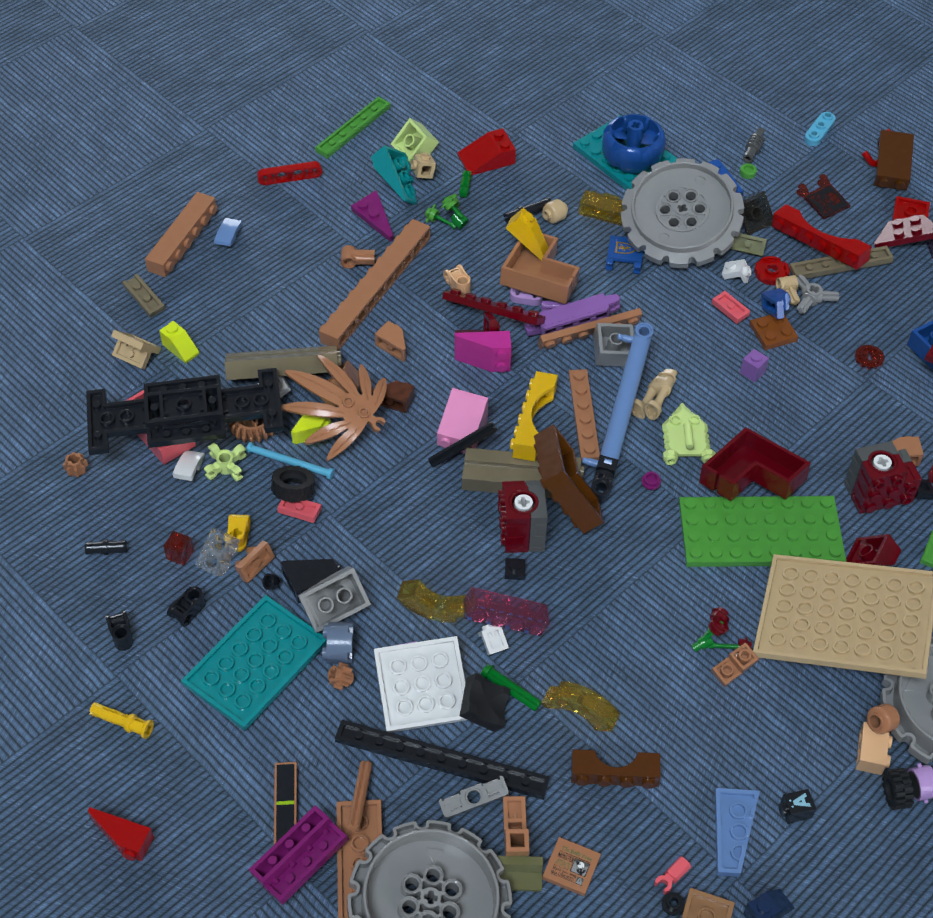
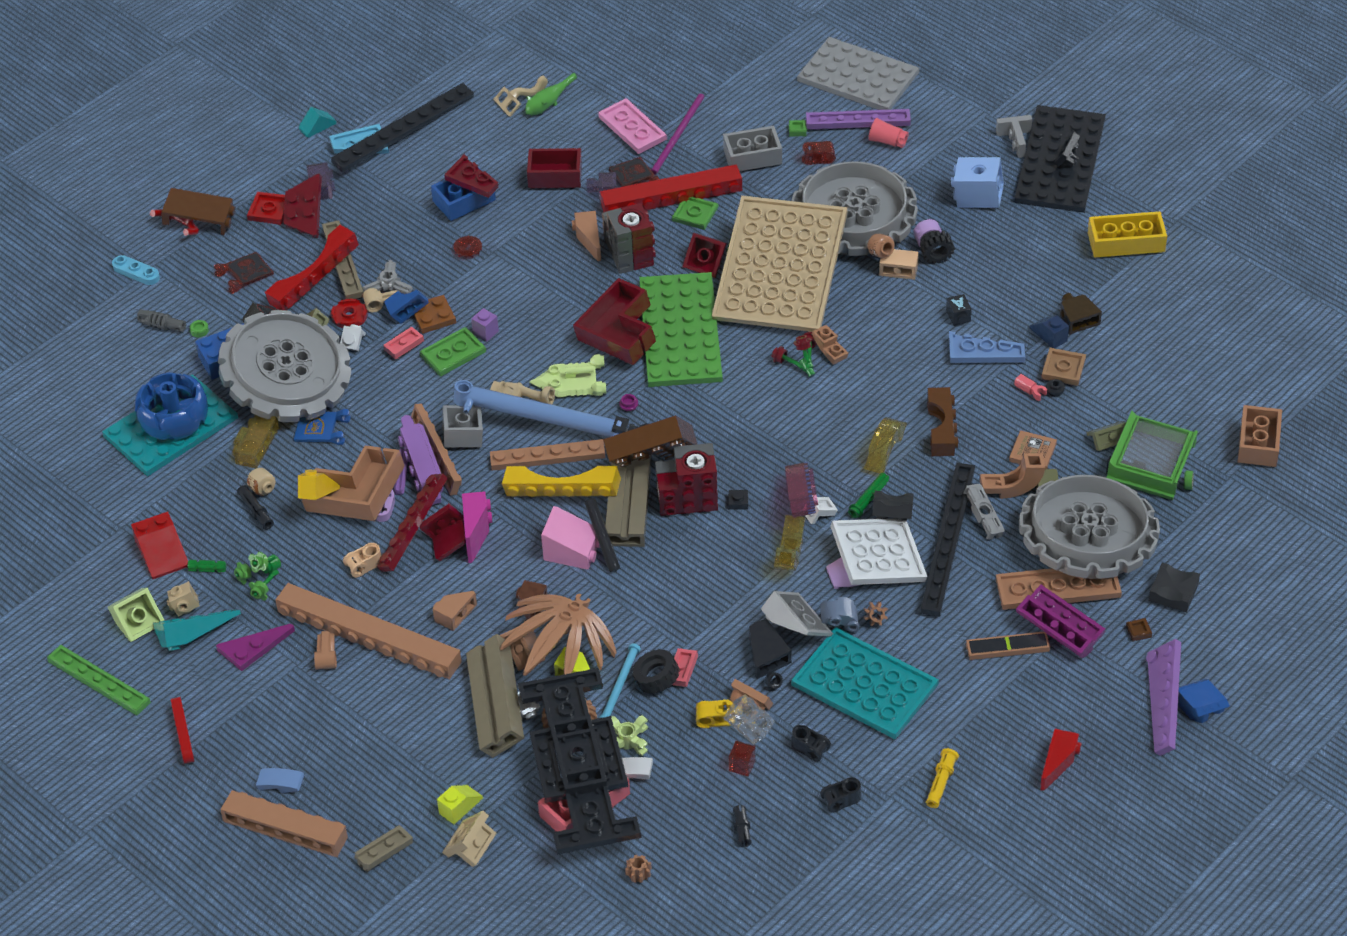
camera: 90 degrees left, 5 degrees down
(359, 796) = (996, 585): nougat axle -> none
(722, 345) = (452, 351): none -> bright green tile

